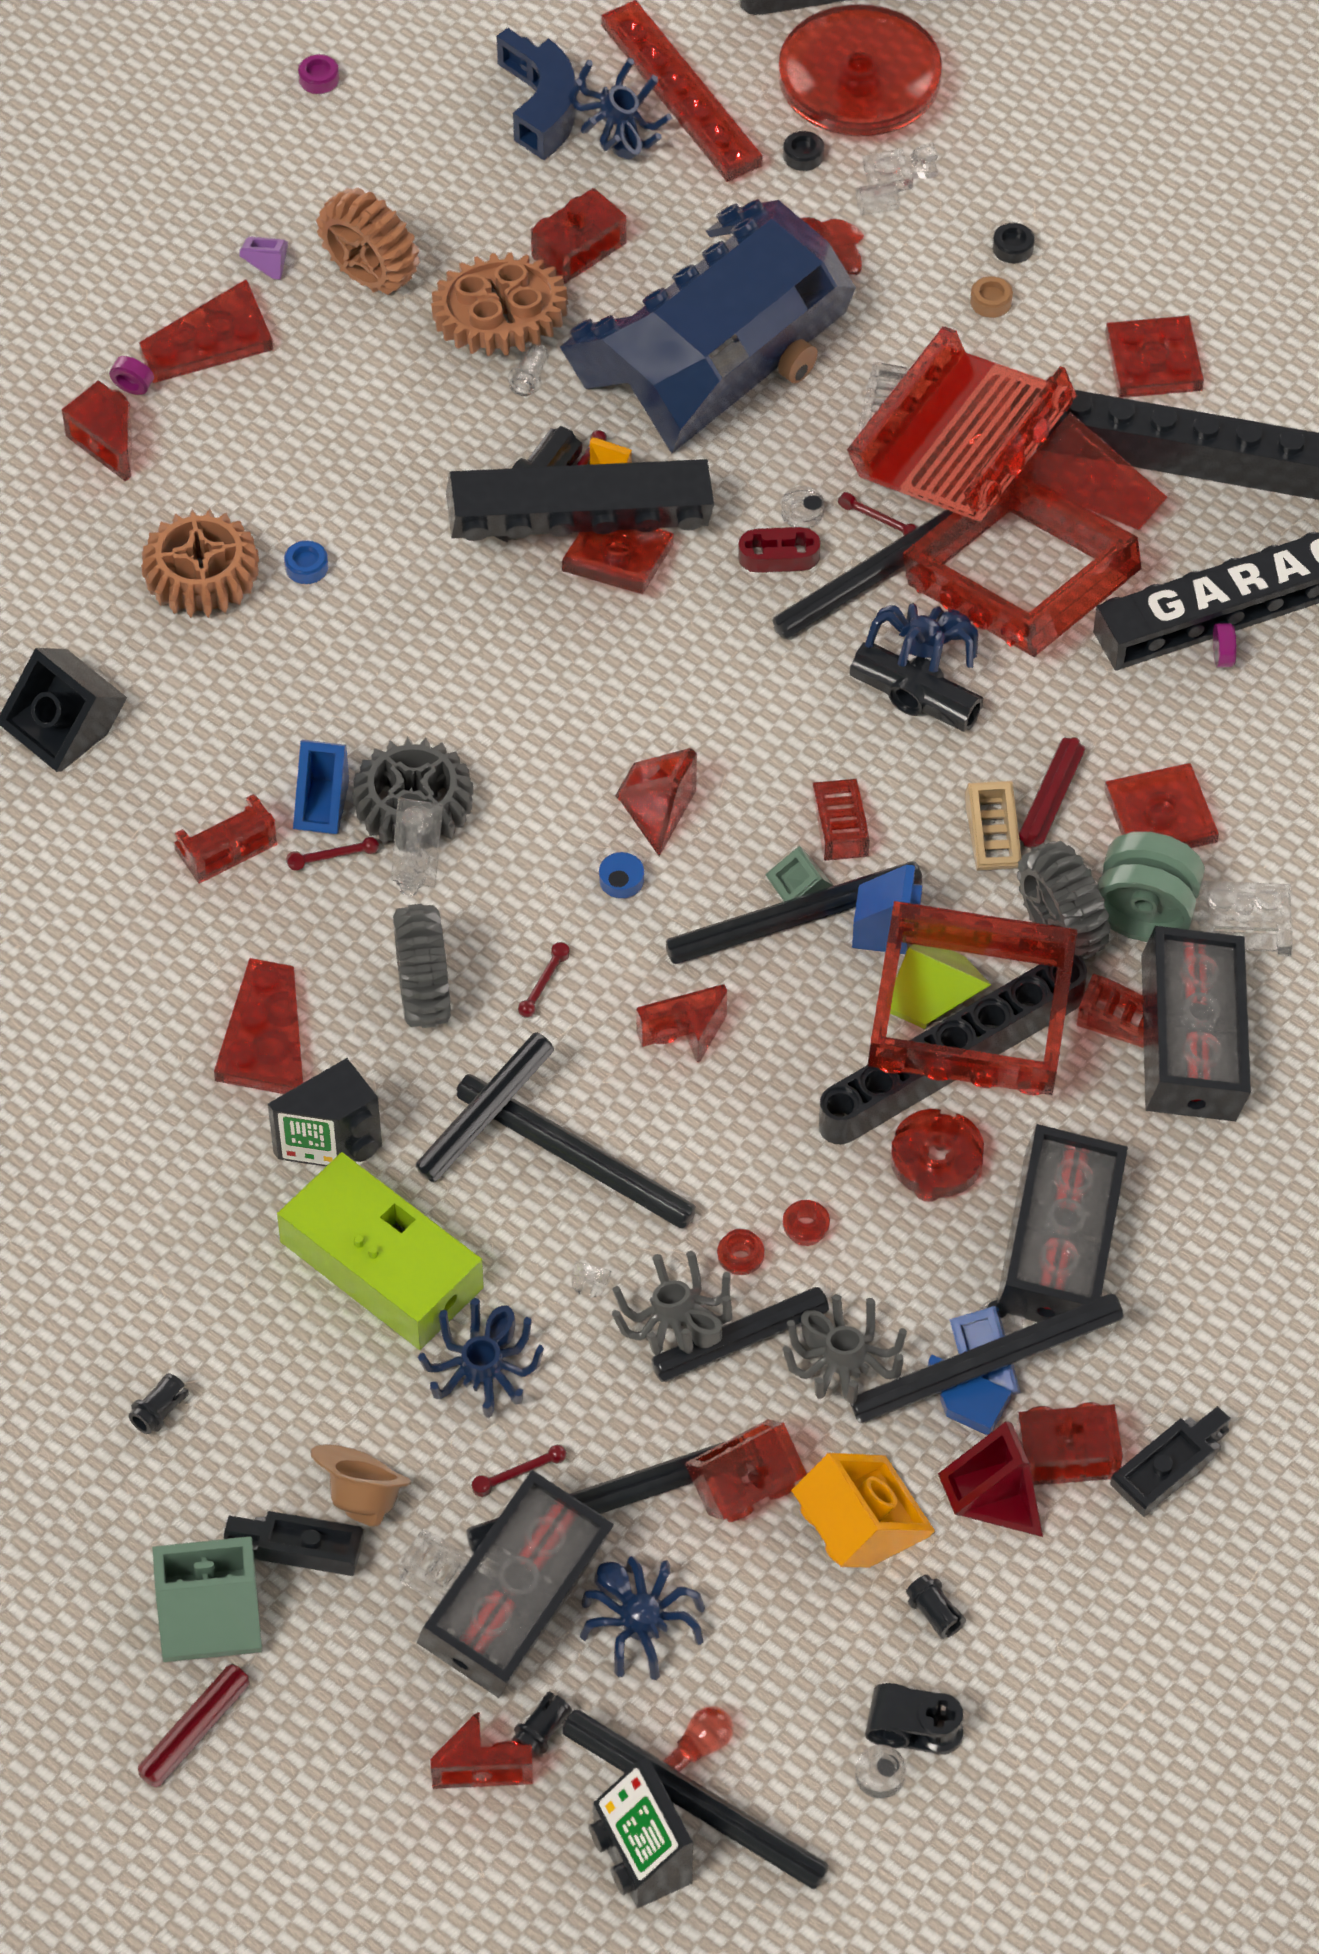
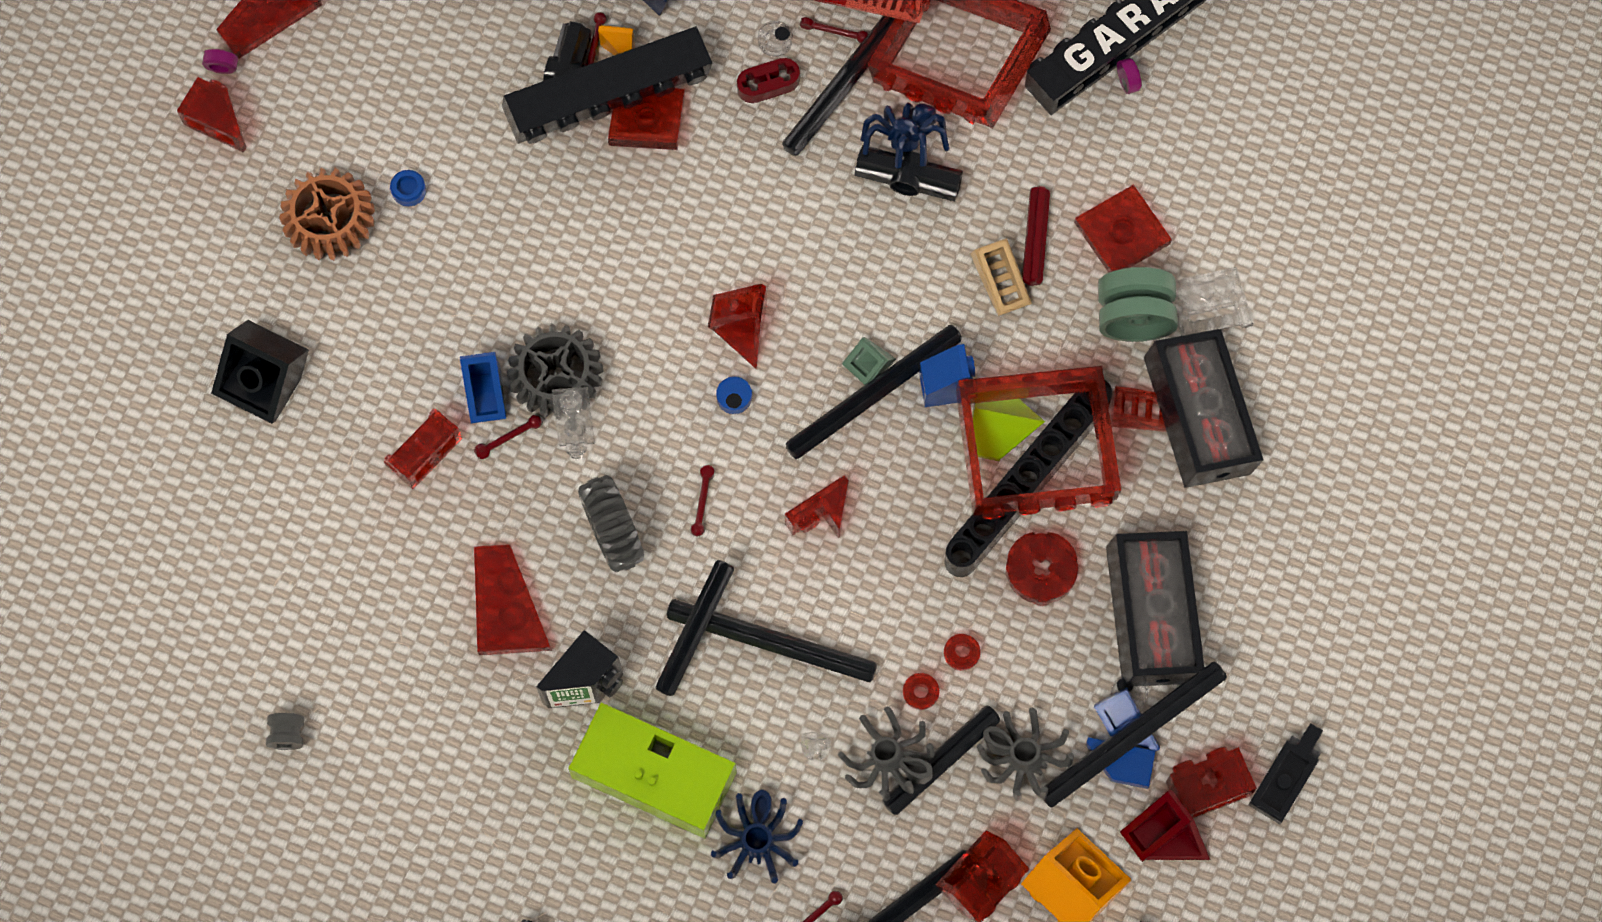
camera: 15 degrees left, 15 degrees up
(844, 844) = (894, 324): clear red slope -> none
(1064, 894) = (1076, 332): dark grey gear -> none

